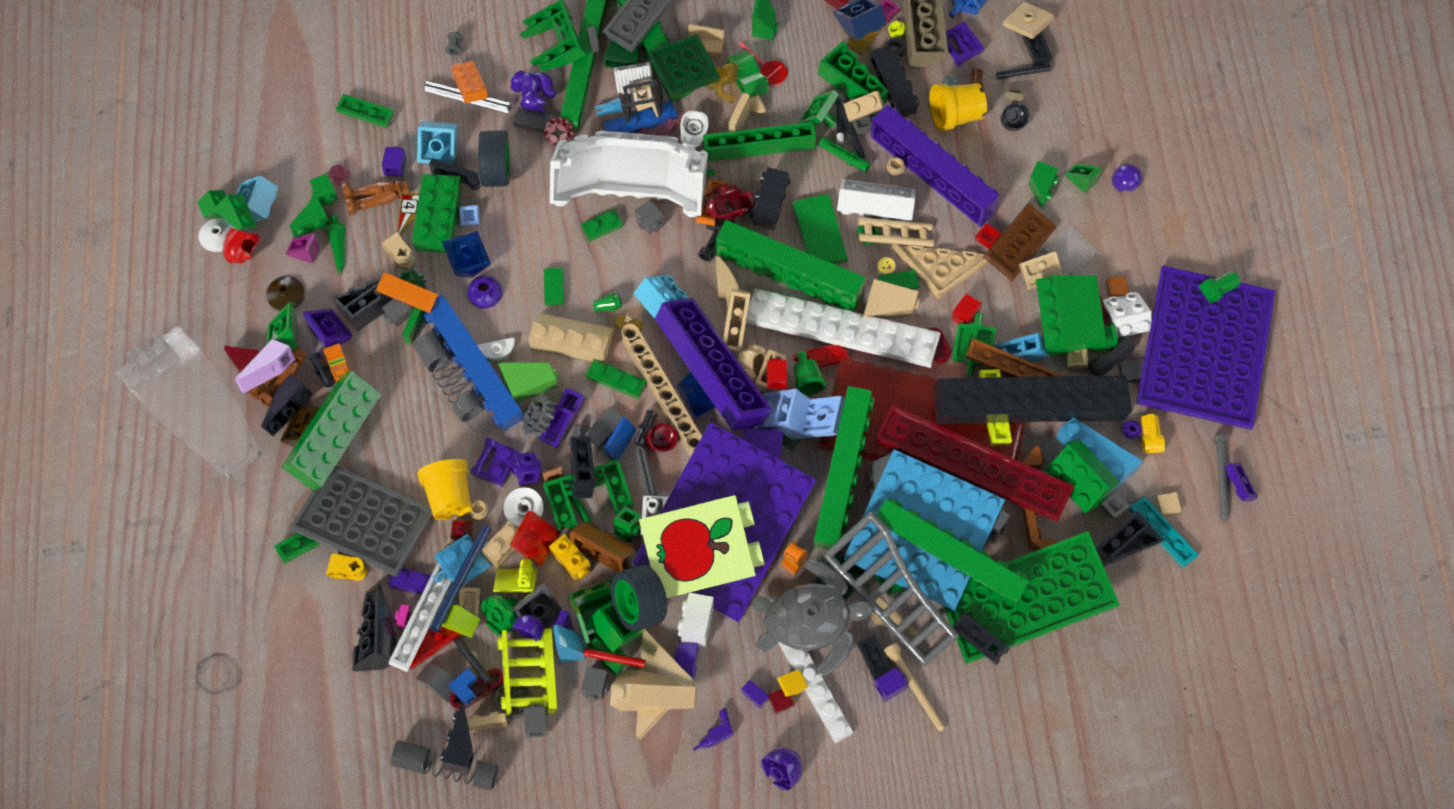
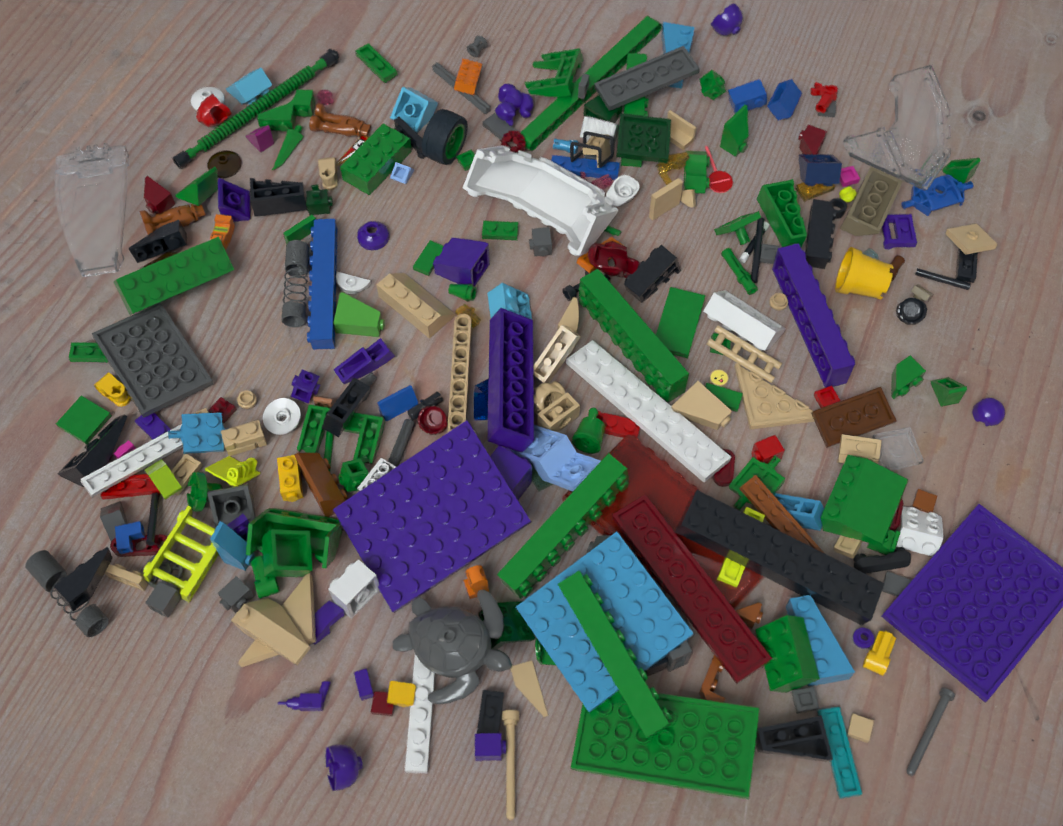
camera: 30 degrees right, 5 degrees down
(230, 207) = (222, 80): green arch -> none
(267, 364) = (161, 203): lavender slope -> none
(278, 219) = (260, 105): none -> green hose
(322, 369) = (207, 228): black axle -> none
(338, 610) = (83, 419): none -> green tile
(394, 161) = (371, 107): dark purple brick -> none
(397, 312) = (292, 213): dark grey brick -> none
(406, 292) = (305, 201): orange tile -> none
(446, 487) = (229, 366): yellow piece -> none
(460, 578) = (186, 444): dark blue piece -> none
(466, 255) = (374, 198): clear blue slope -> none
(500, 465) = (283, 378): dark purple plate -> none
(524, 169) = (466, 159): none -> green tile
(529, 627) = (211, 514): dark purple hair -> none
(534, 538) = (269, 444): red plate -> none
(538, 416) = (343, 349): dark grey gear -> none
(589, 274) = (462, 261): none -> dark purple slope
(603, 427) = (388, 387): dark grey tile -> none
(614, 657) = (263, 581): red bar -> none
(616, 379) = (429, 354): green plate -> none
(639, 598) = (308, 538): black wheel -> none
(701, 545) = (390, 523): yellowish green brick -> none
(759, 141) = (671, 225): green brick -> none
(776, 374) = (558, 414): red brick -> none
(863, 106) = (777, 237): tan plate -> none
(903, 571) = (557, 647): dark grey bar -> none
(980, 638) = (595, 752): black plate -> none
(1214, 289) = (1020, 550): green piece -> none
(1241, 482) = (946, 747): dark purple plate -> none

